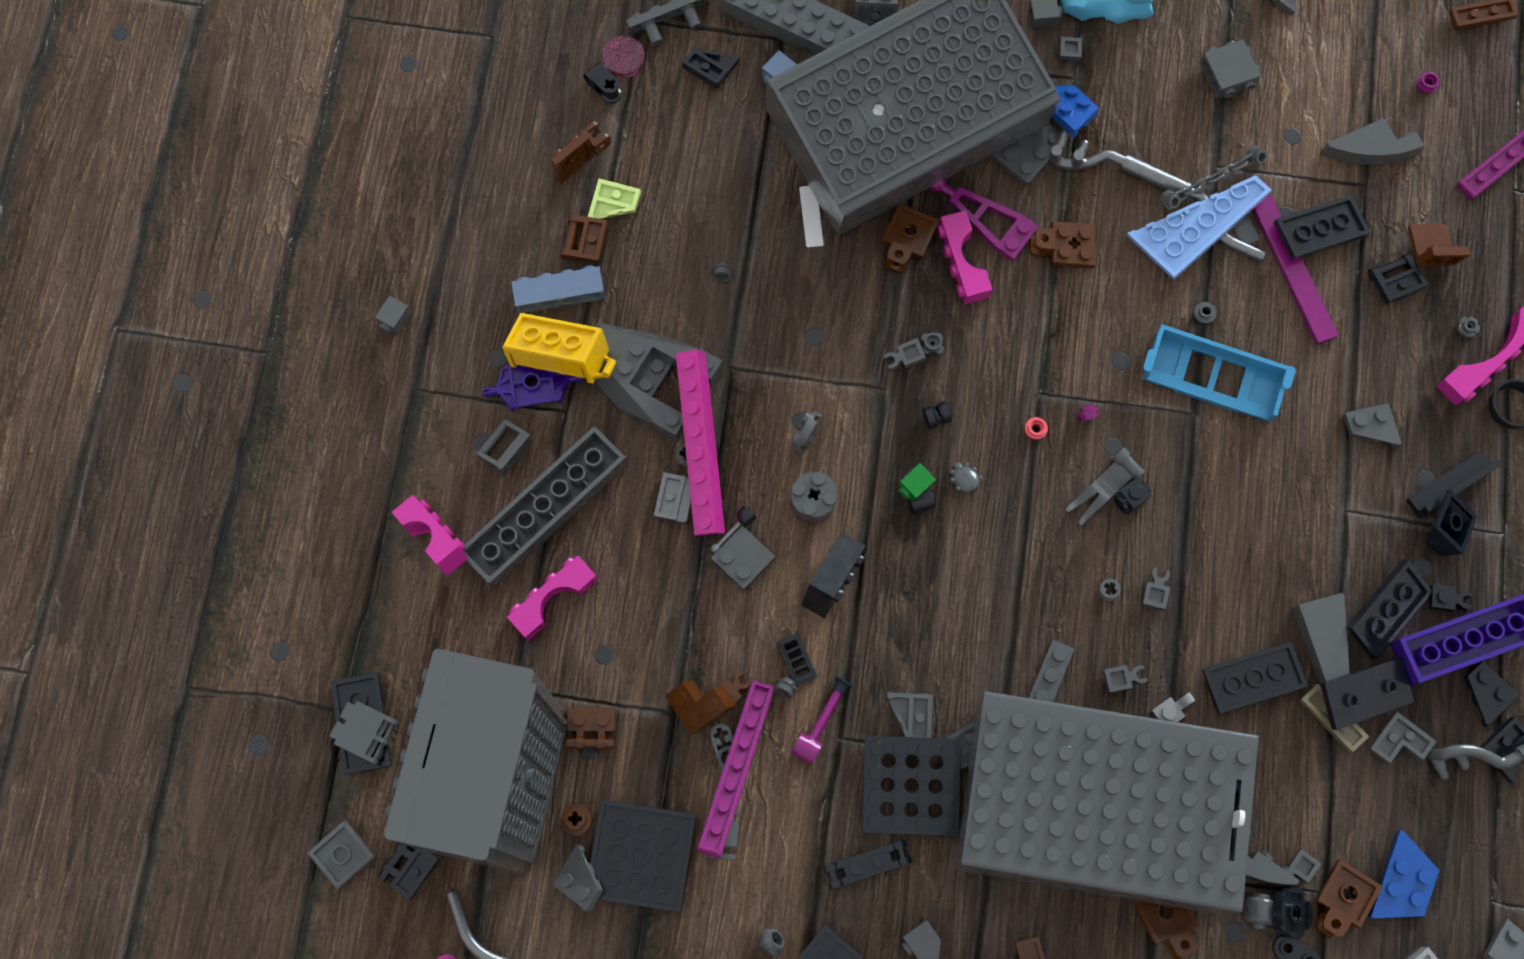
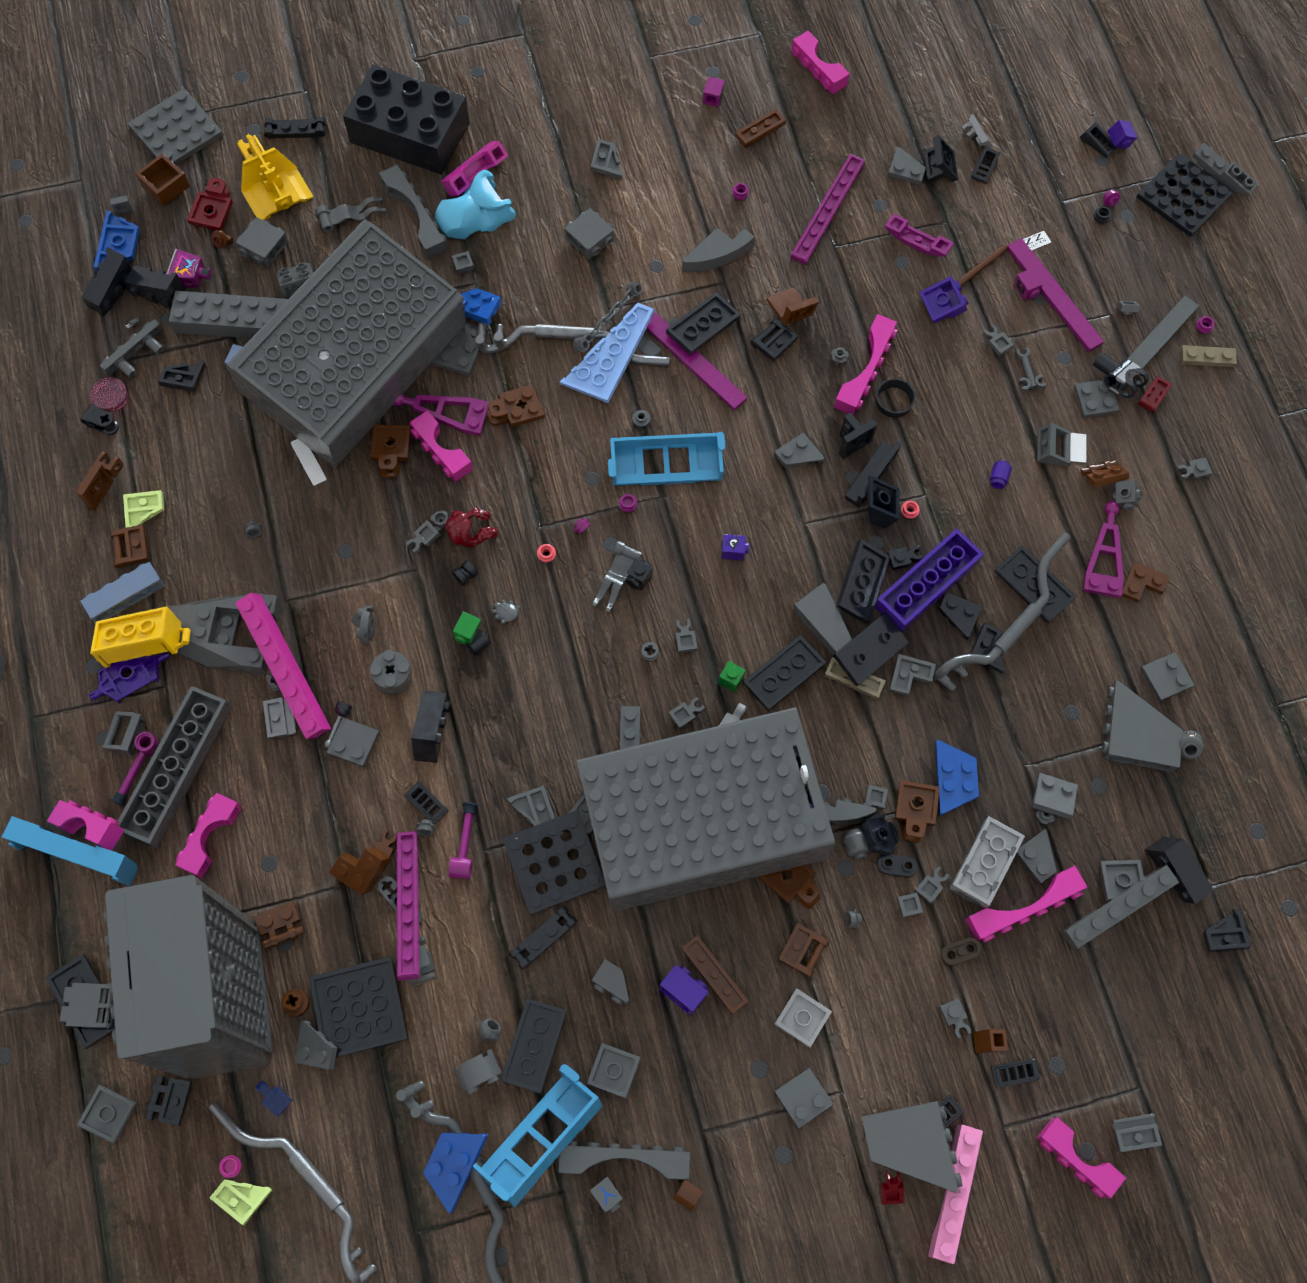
camera: 25 degrees left, 5 degrees down
(427, 577) = (23, 833): none -> dark azure piece
(475, 517) = (140, 740): none -> magenta piece
(519, 916) = (275, 1100): none -> clear blue plate
(951, 361) = (459, 527): none -> dark red hair
(1151, 407) = (628, 503): none -> magenta plate
(1192, 658) = (731, 676): none -> green brick
(1254, 508) = (734, 547): none -> dark purple brick
(1449, 431) = (854, 435): none -> black bracket
(1483, 541) = (910, 505): none -> coral plate

